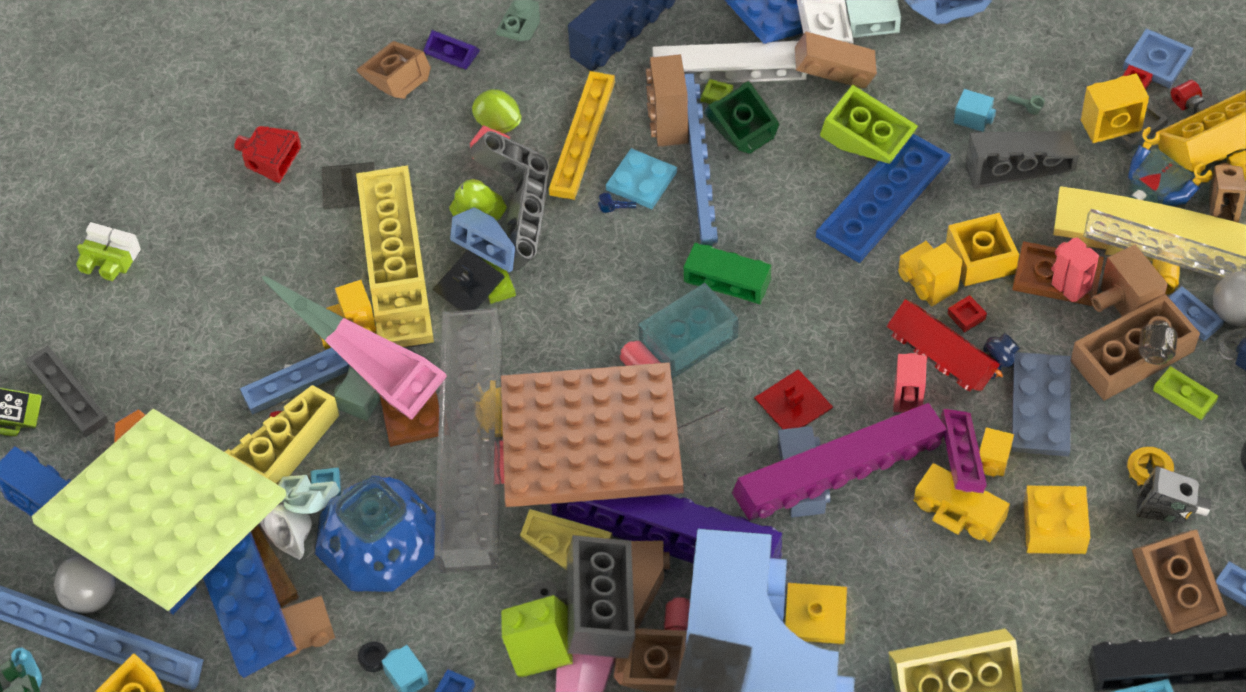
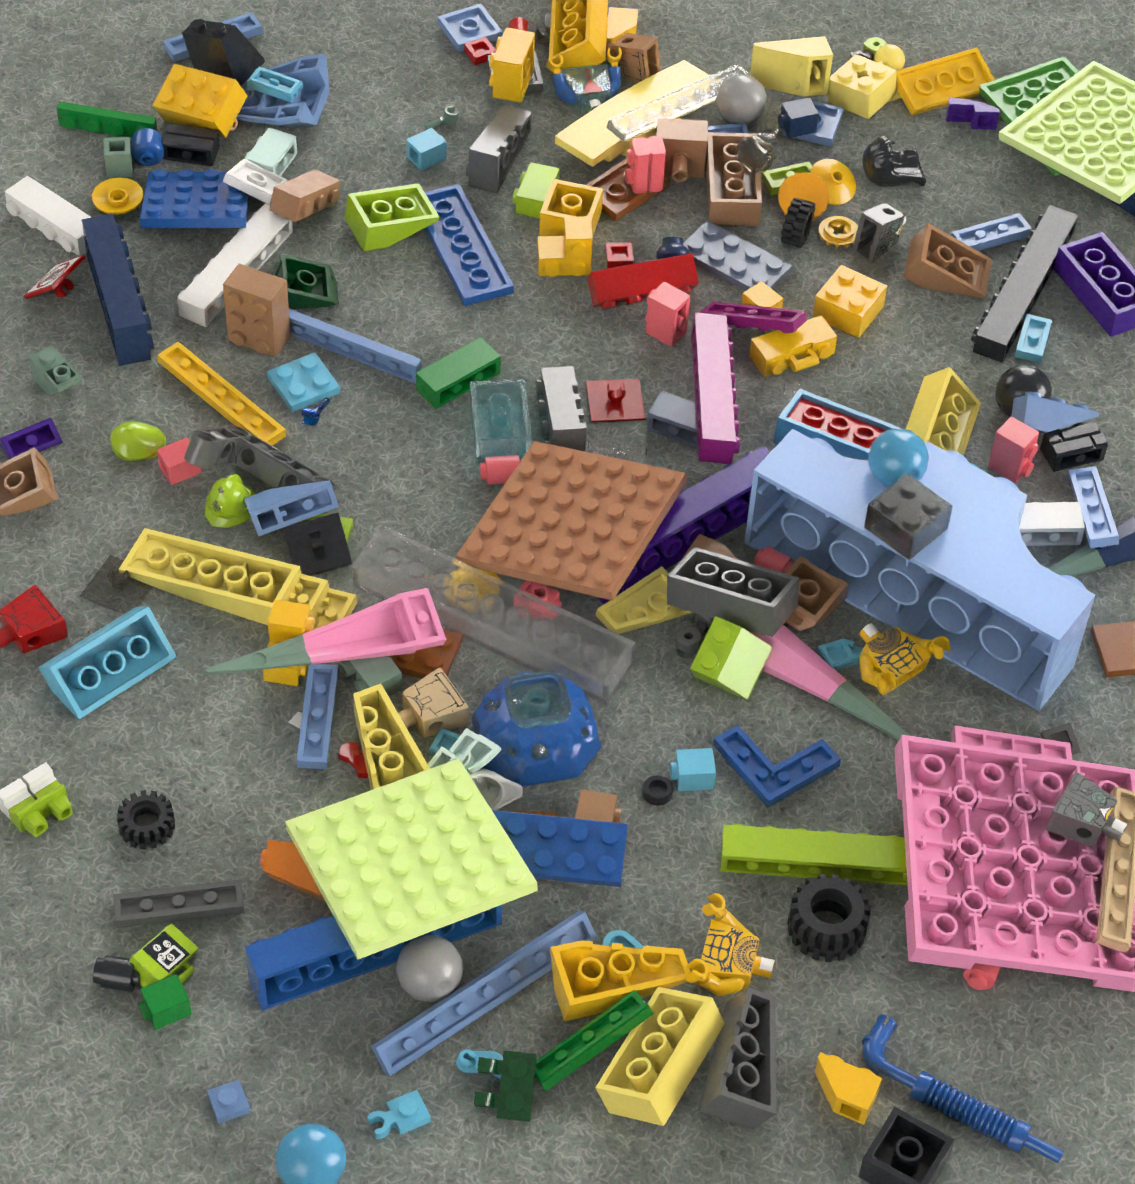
camera: 65 degrees left, 5 degrees down
(131, 339) = (146, 834): none -> black tyre
(262, 219) = (108, 661): none -> medium azure slope
(353, 447) = (434, 705): none -> tan torso
(732, 370) = (561, 408): none -> wedge
(777, 633) = (896, 454): none -> dark azure piece
(866, 591) = (840, 426): none -> brick
(1001, 201) = (534, 188): none -> brick
(1119, 425) = (797, 222): none -> black tyre
(1164, 415) = (805, 187): none -> light orange tile
(1206, 443) = (839, 190): none -> yellow dish

